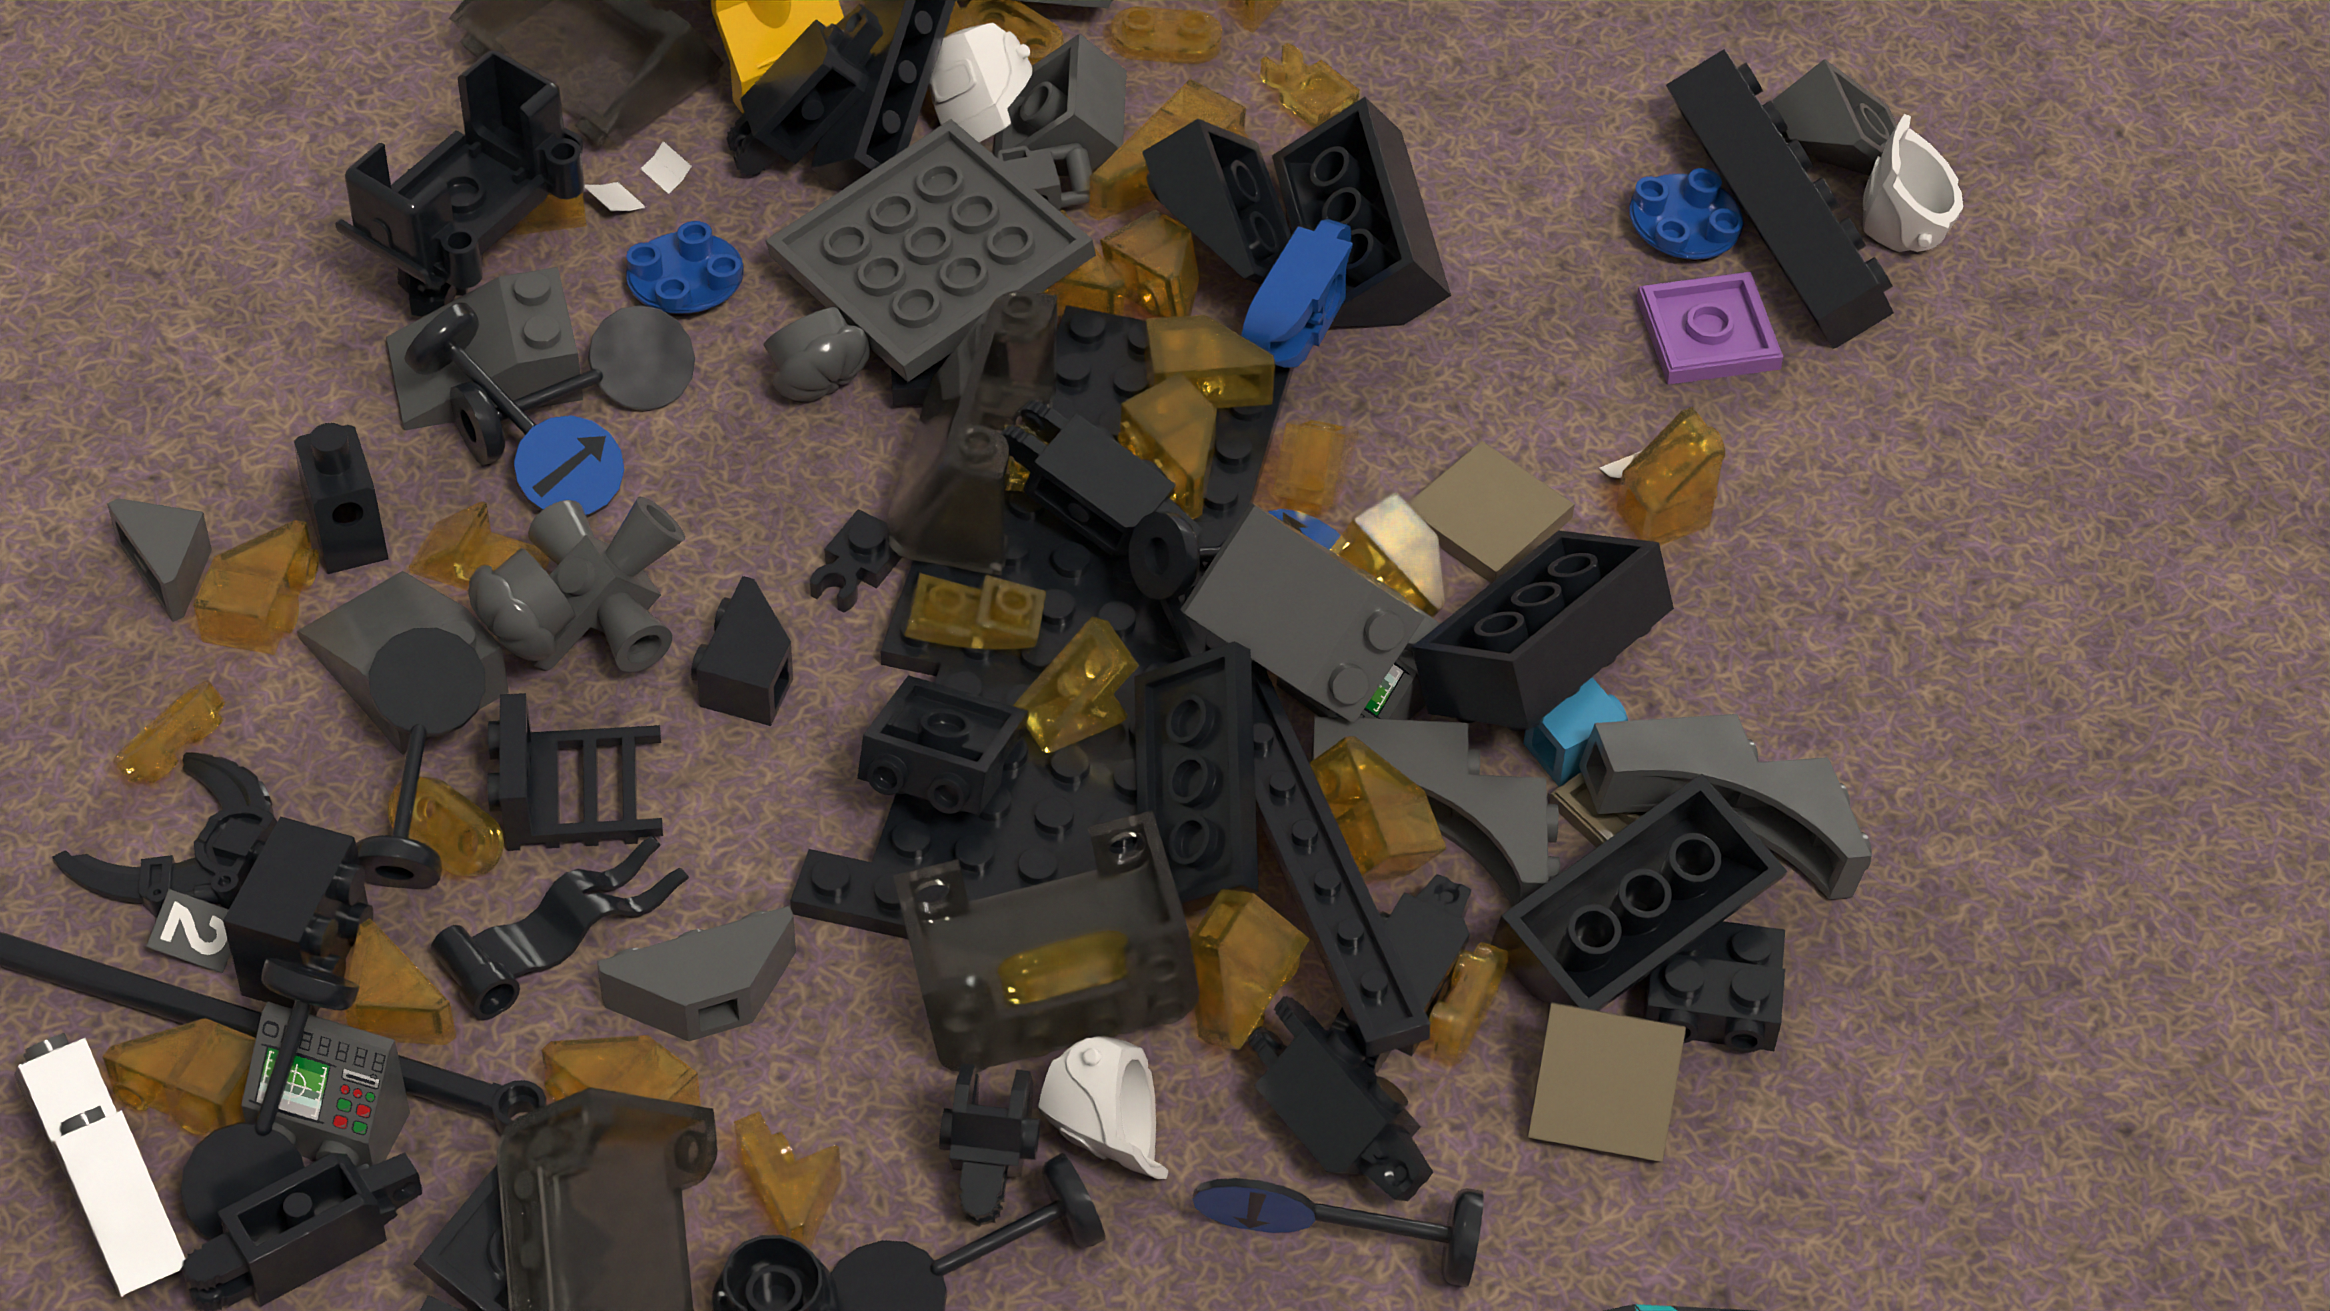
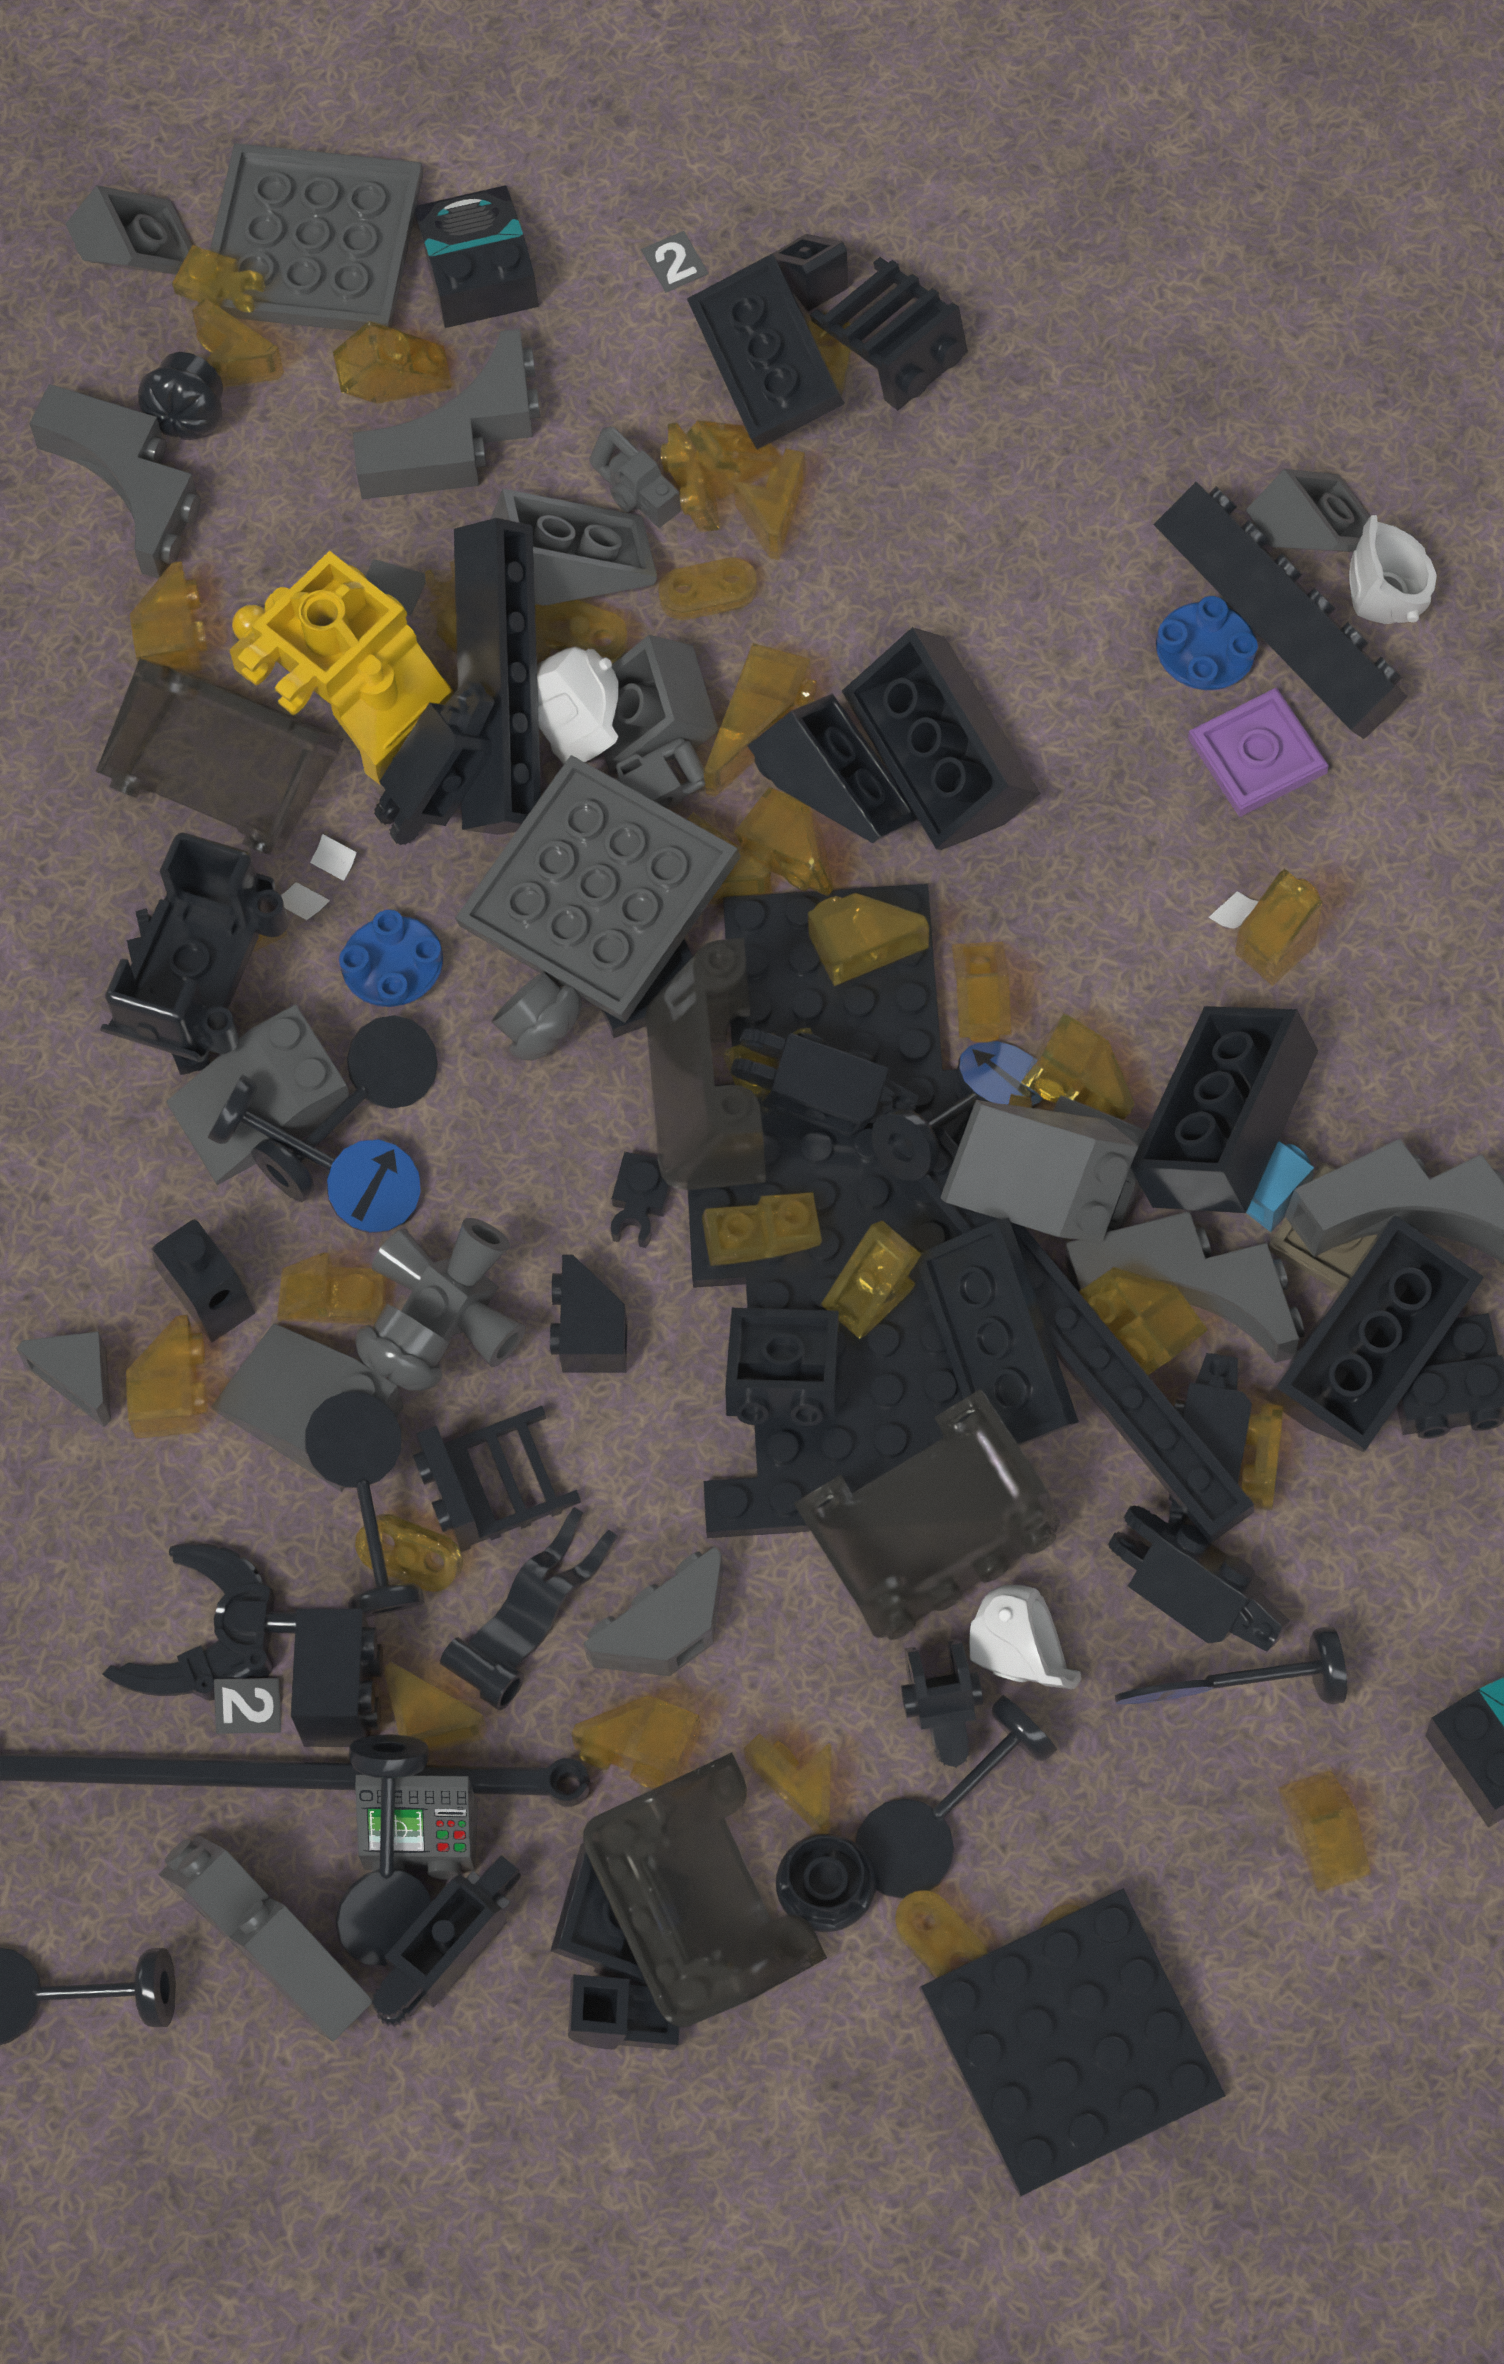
camera: 10 degrees left, 15 degrees up
(185, 1072) = (303, 1833): clear yellow slope -> none
(189, 717) = (152, 1536): clear yellow plate -> none
(1063, 966) = (949, 1532): clear yellow plate -> none
(1177, 433) = (866, 1015): clear yellow slope -> none
(1240, 962) = (1086, 1489): clear yellow slope -> none
(1301, 293) = (923, 841): blue piece -> none
(1309, 92) = (853, 614): clear yellow plate -> none
(1490, 511) = (1134, 992): dark tan tile -> none
(1607, 1082) = (1395, 1497): dark tan tile -> none

